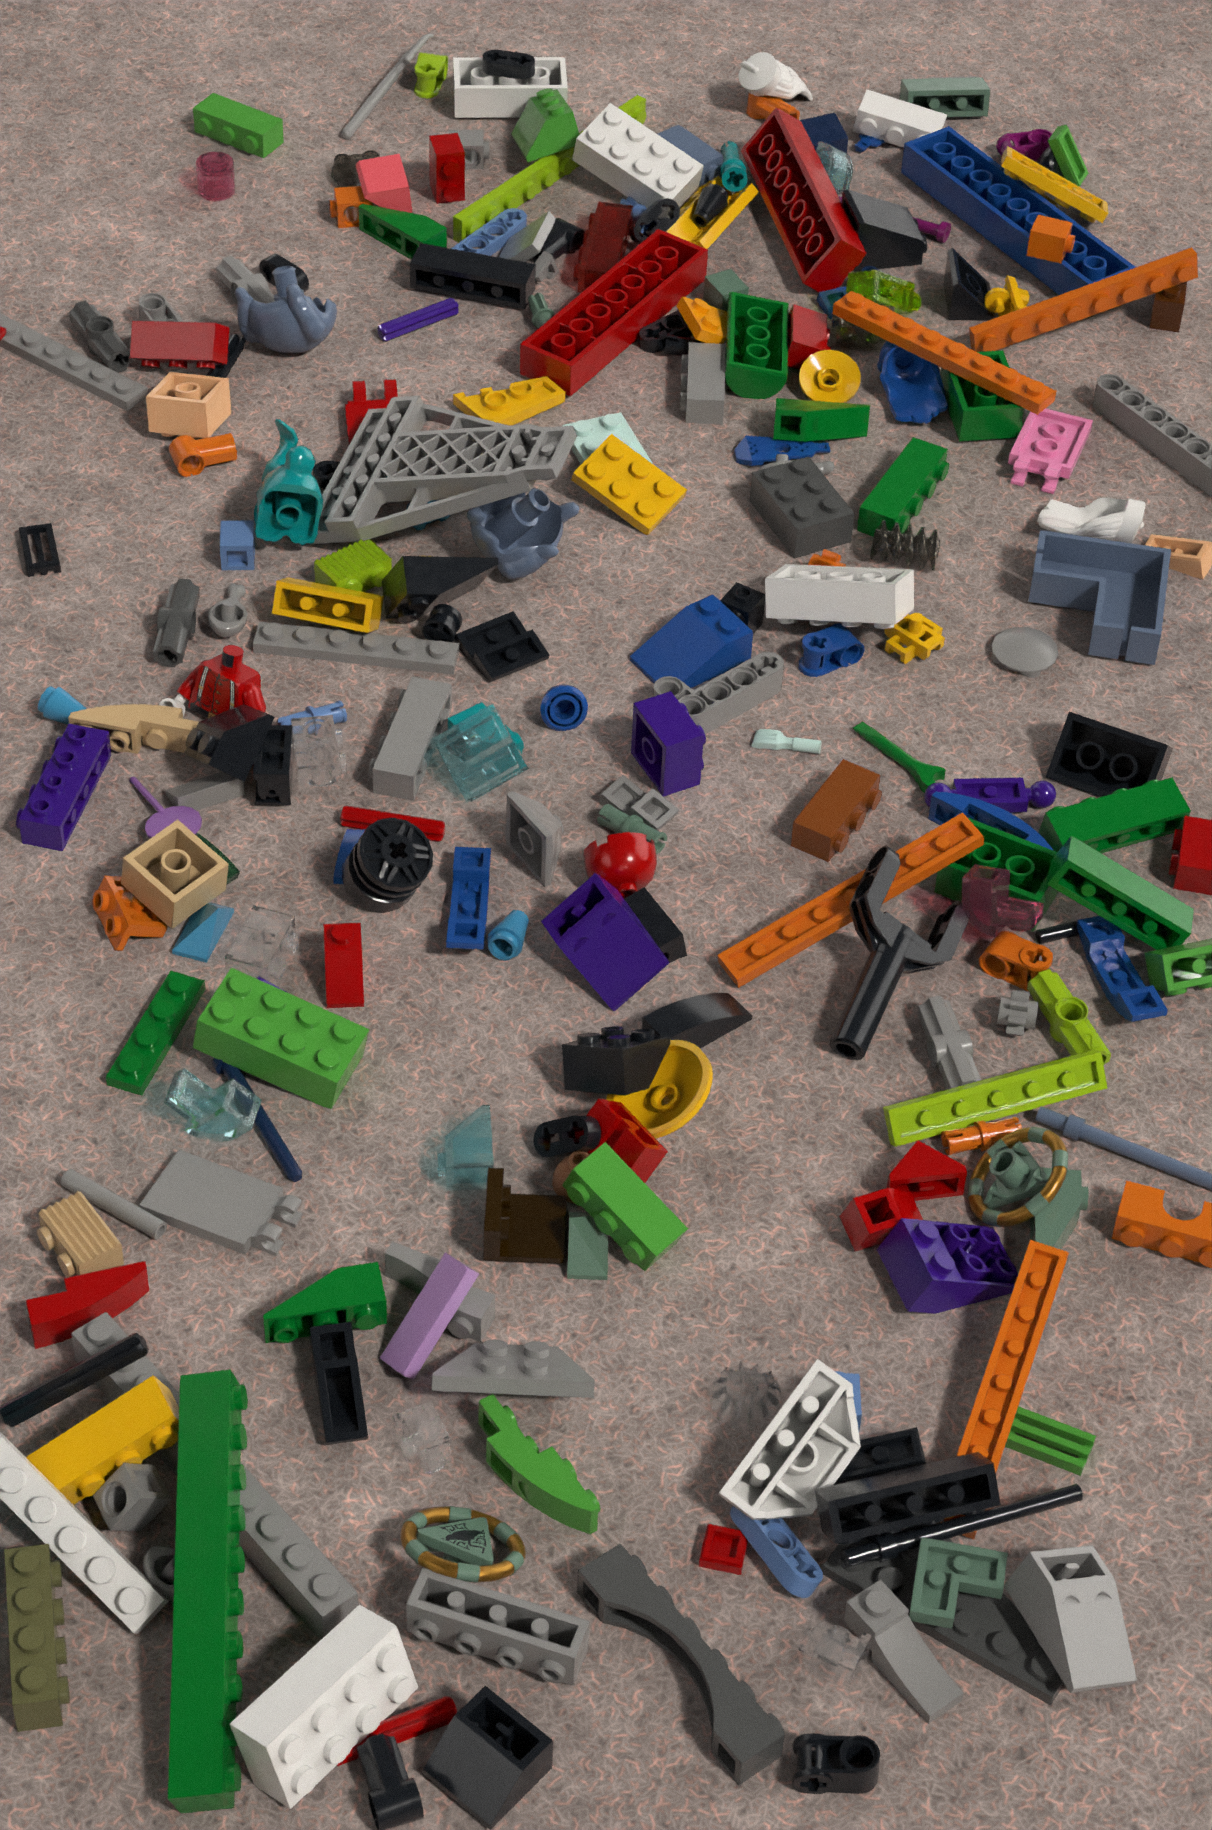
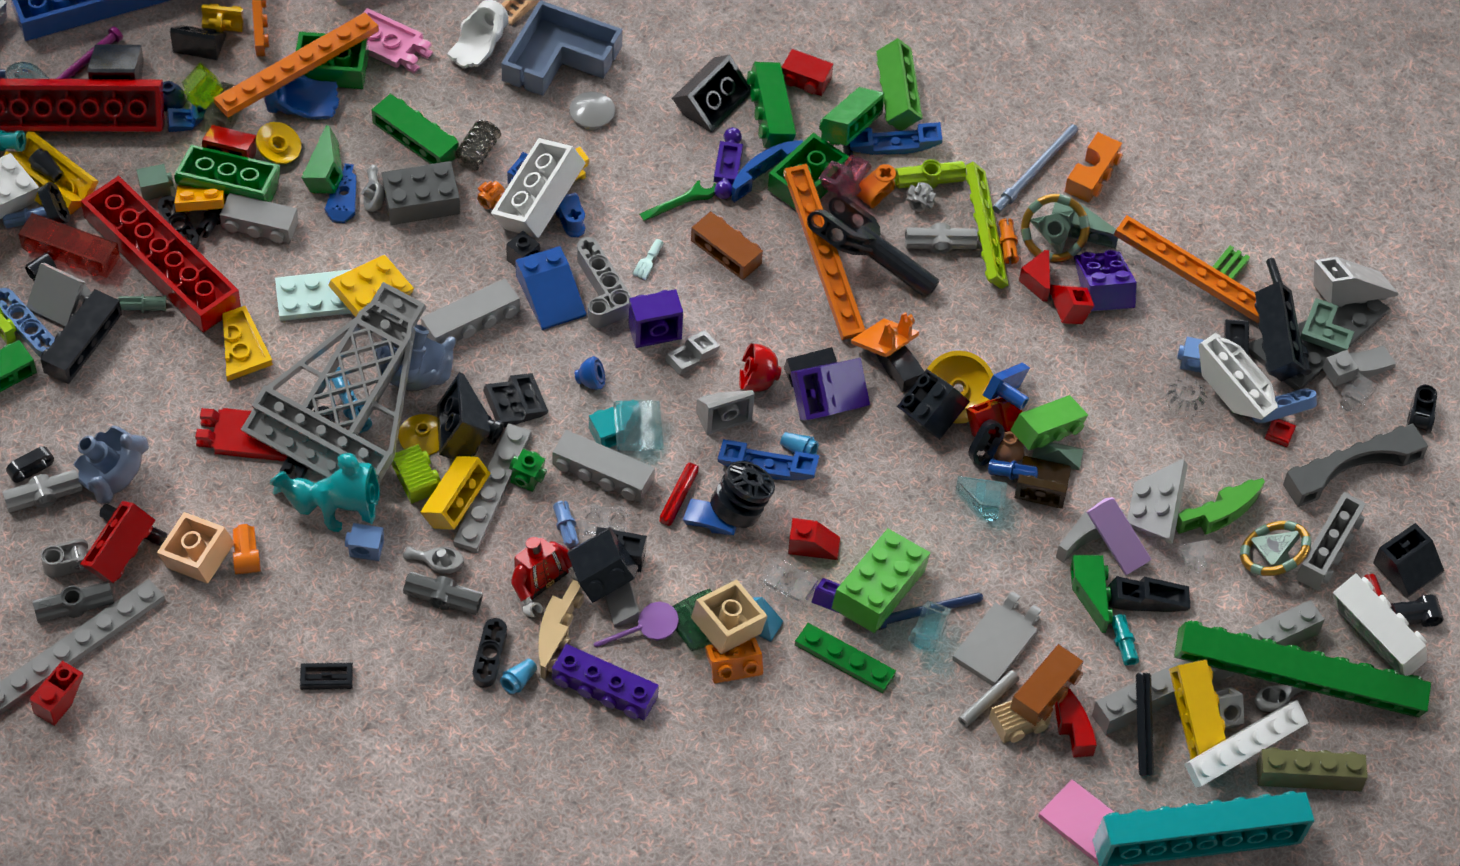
camera: 80 degrees left, 10 degrees up
(87, 673) = (485, 643): none -> black beam
(117, 1239) = (1047, 685): none -> dark orange brick
(254, 1360) = (1124, 640): none -> teal pin
(383, 665) = (527, 469): none -> green brick
(417, 319) = (114, 385): dark purple axle -> none
(530, 1180) = (1011, 469): none -> blue axle
(621, 581) = (472, 313): none -> light grey brick
(622, 822) = (716, 359): sand green pin -> none
(662, 1120) = (1006, 385): none -> blue piece
(722, 993) = (887, 336): none -> orange plate

